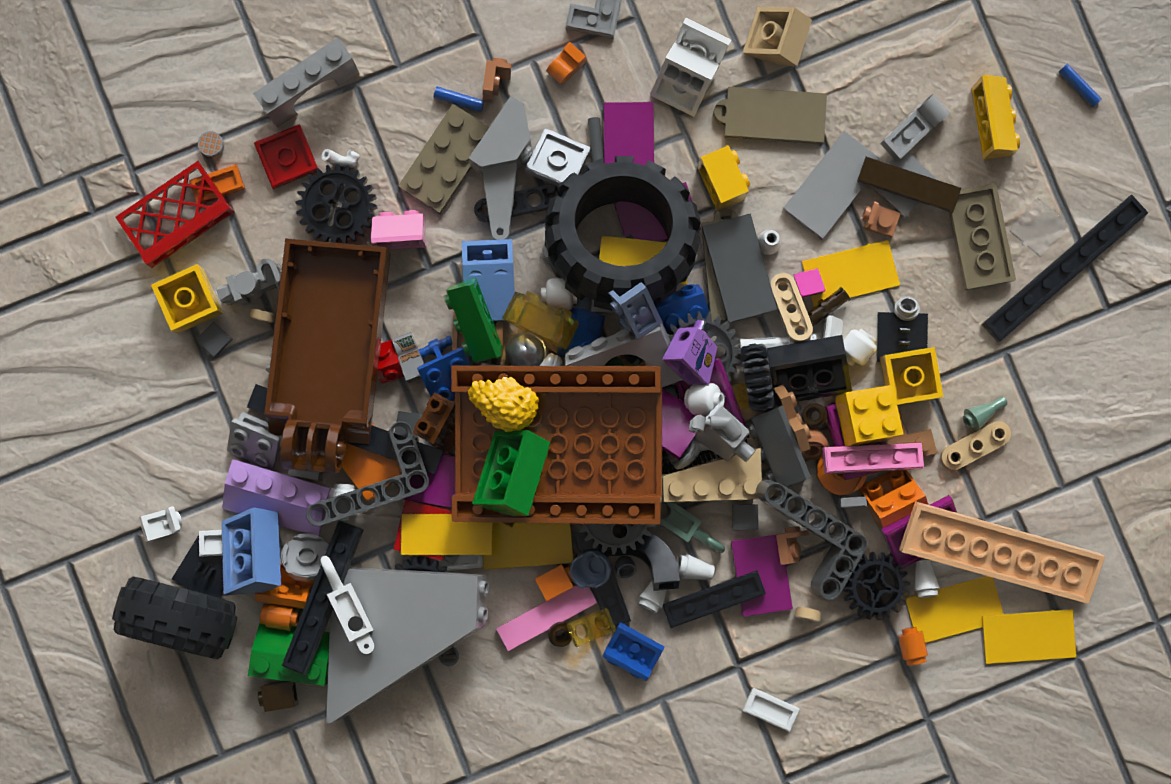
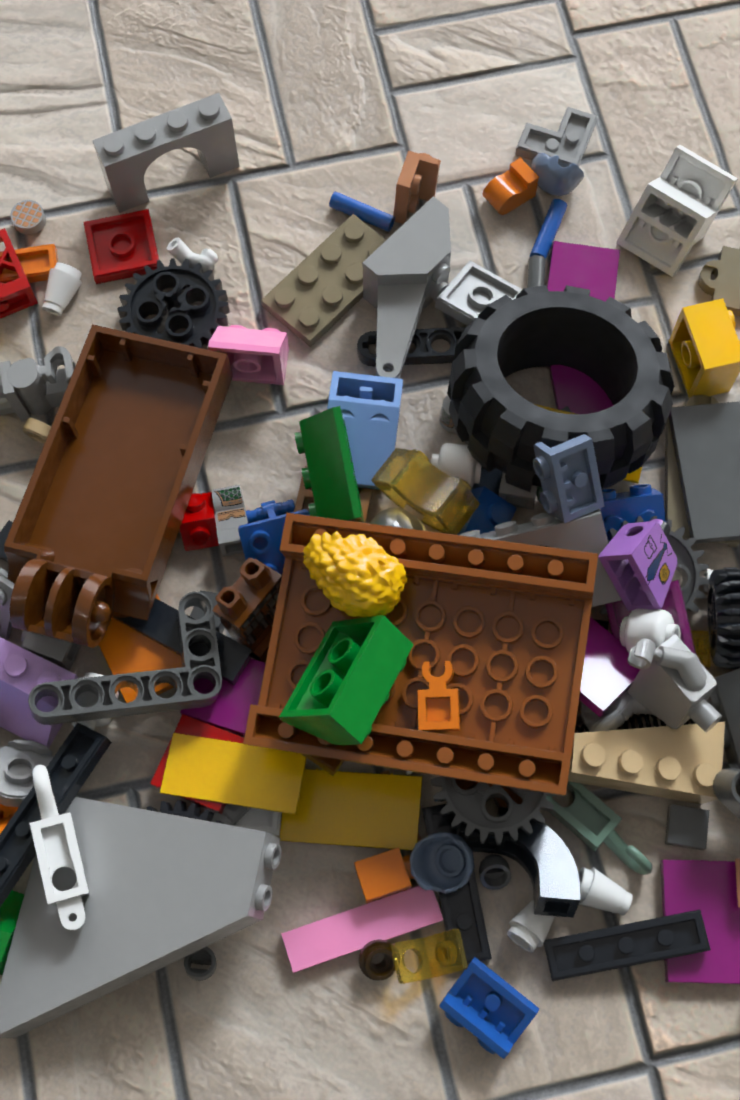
camera: 15 degrees right, 15 degrees down
(250, 199) = (61, 288): none -> white cone
(572, 478) = (438, 705): none -> orange plate
(598, 53) = (554, 178): none -> sand blue hair
(599, 92) = (549, 228): none -> blue piece

